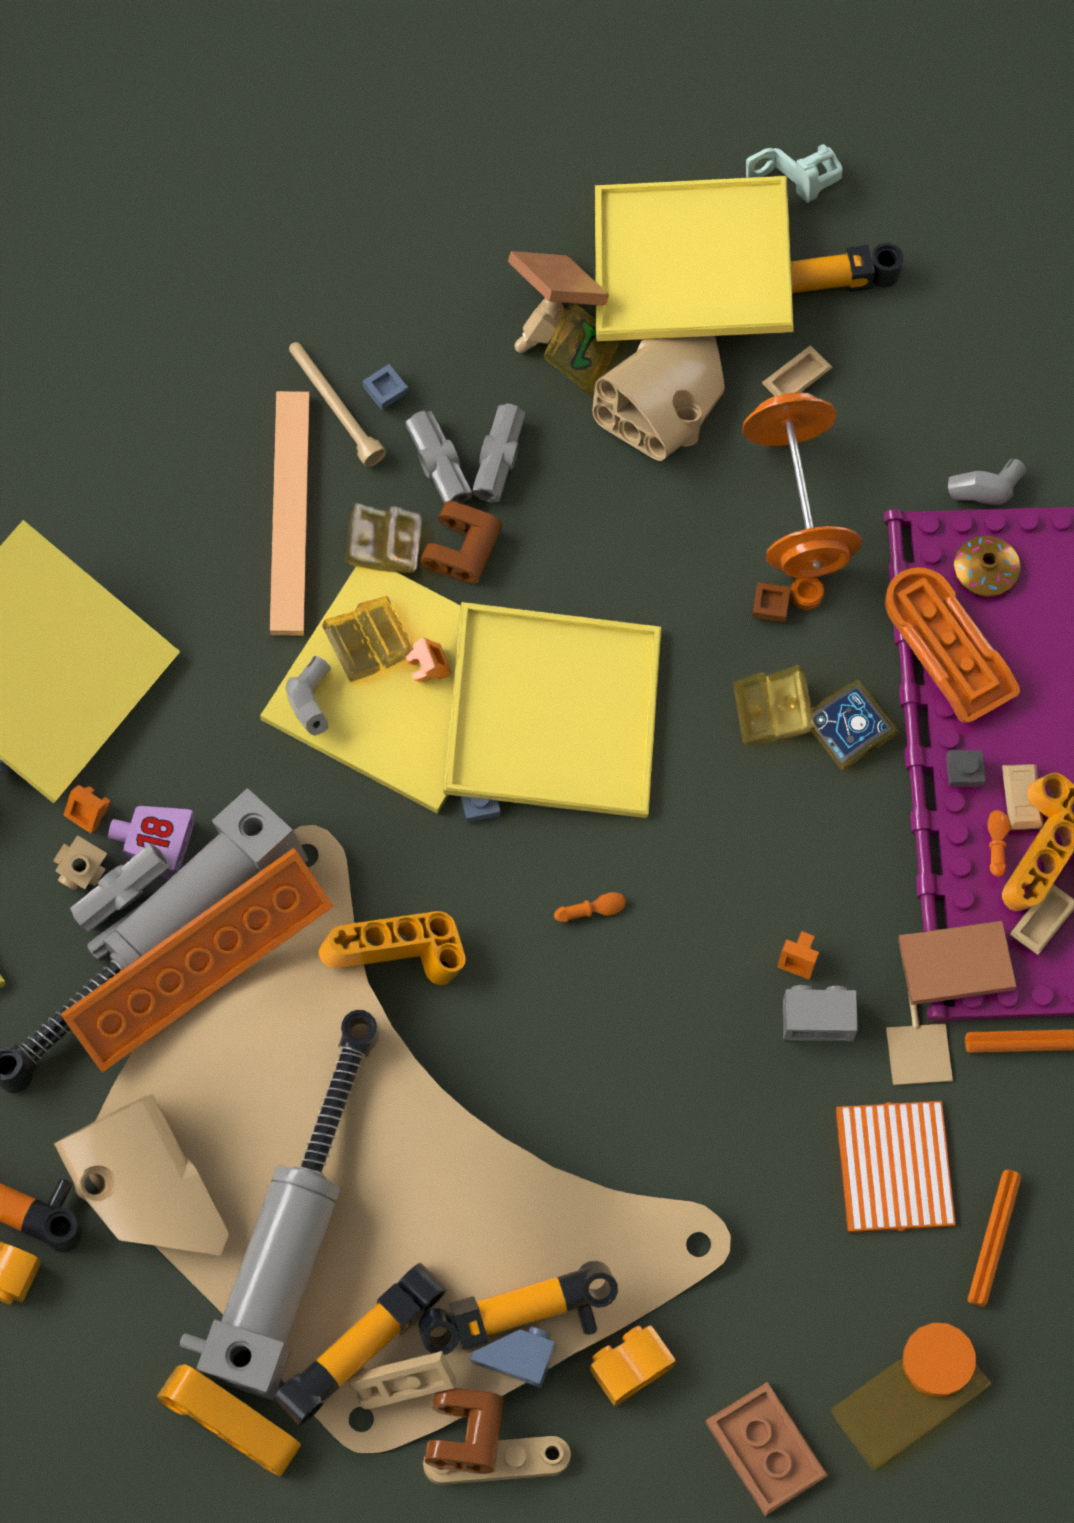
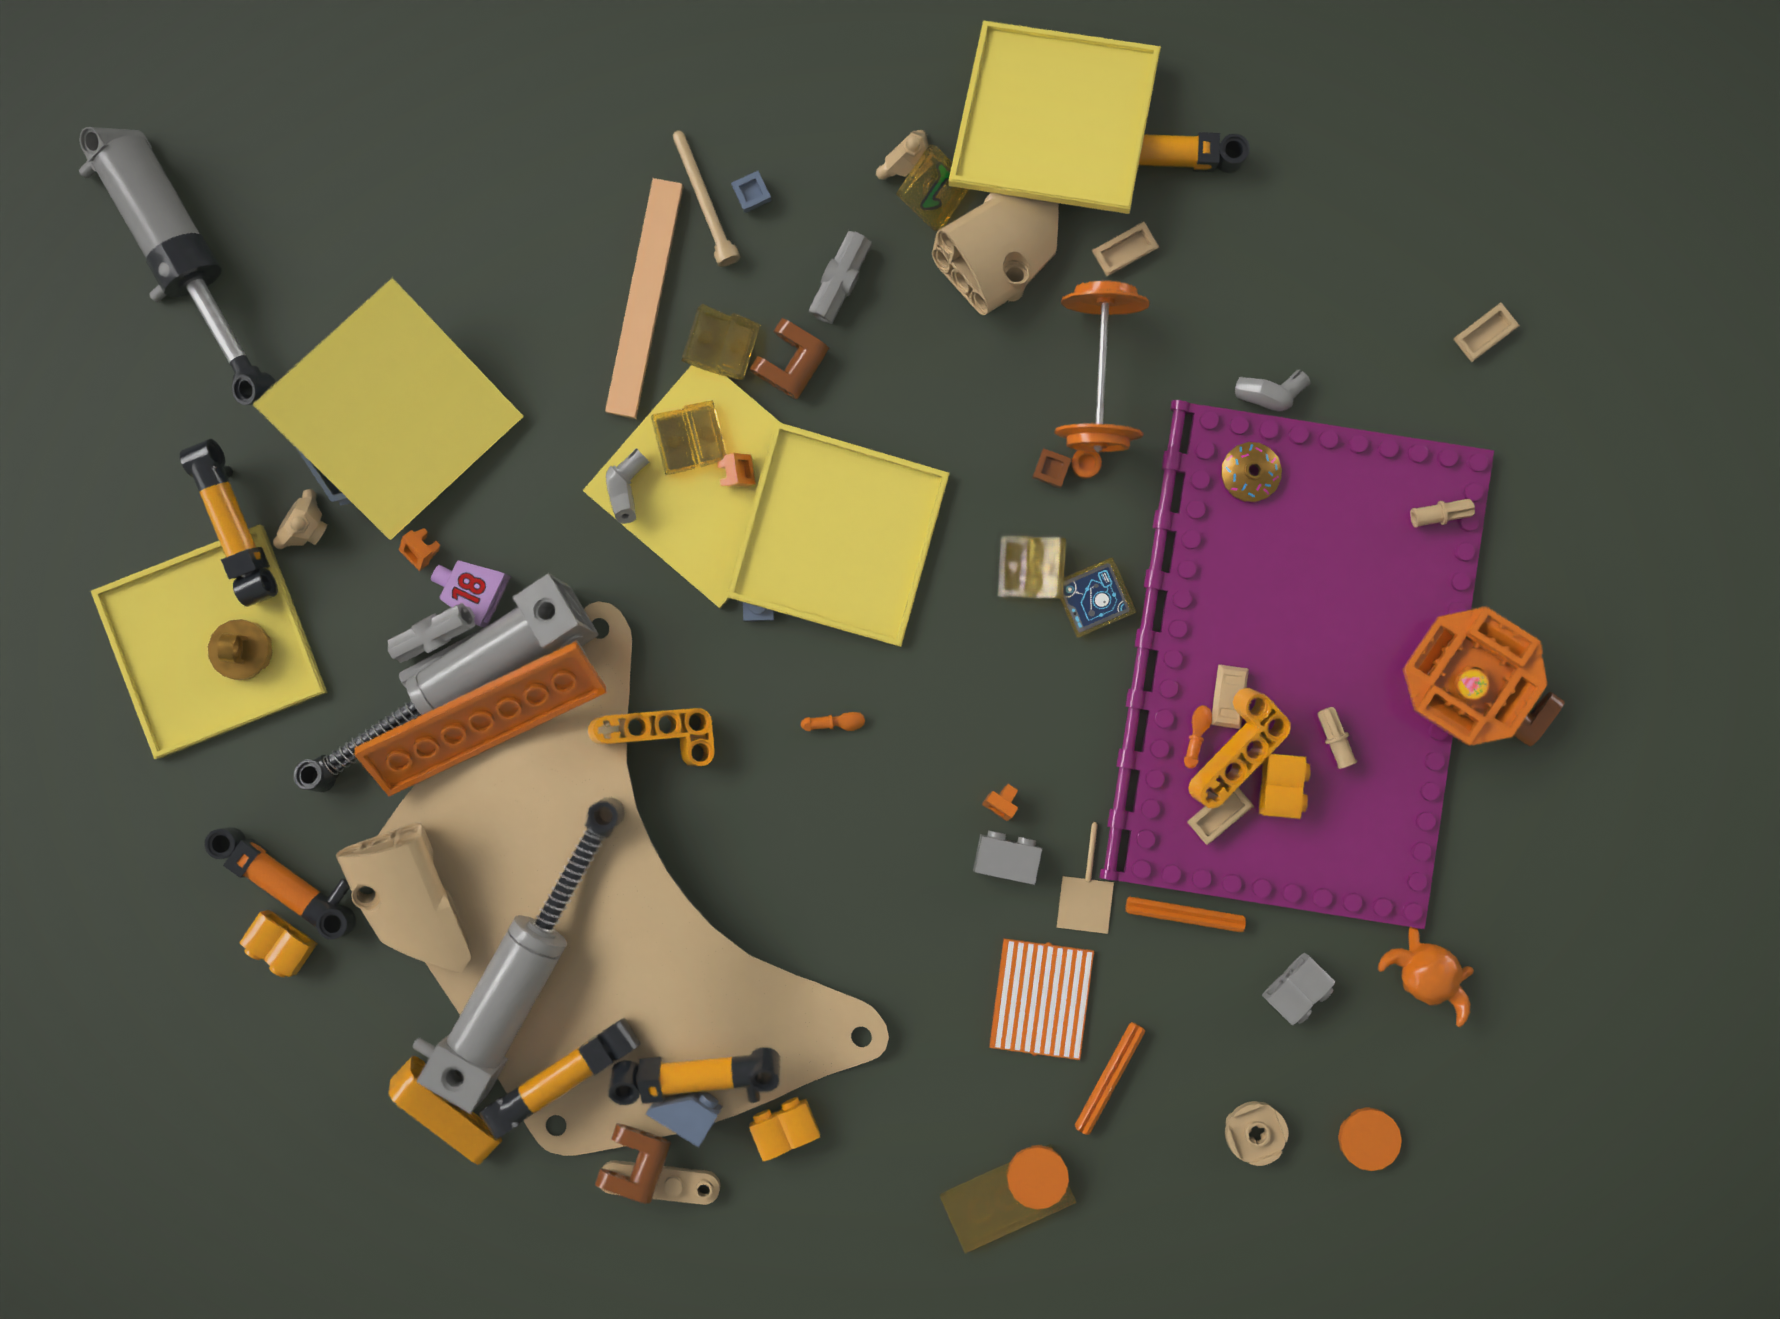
camera: 15 degrees right, 20 degrees up
(89, 853) = (402, 601): tan brick -> none
(402, 1380) = (590, 1115): tan plate -> none
(438, 458) = (785, 272): light grey piece -> none
(558, 278) = (926, 116): nougat tile -> none
(766, 1449) = (880, 1216): nougat tile -> none
(802, 172) = (1177, 45): light aqua piece -> none
(949, 643) = (1199, 543): orange piece -> none
(956, 962) = (1135, 839): nougat tile -> none
(965, 768) = (1185, 662): dark grey plate -> none

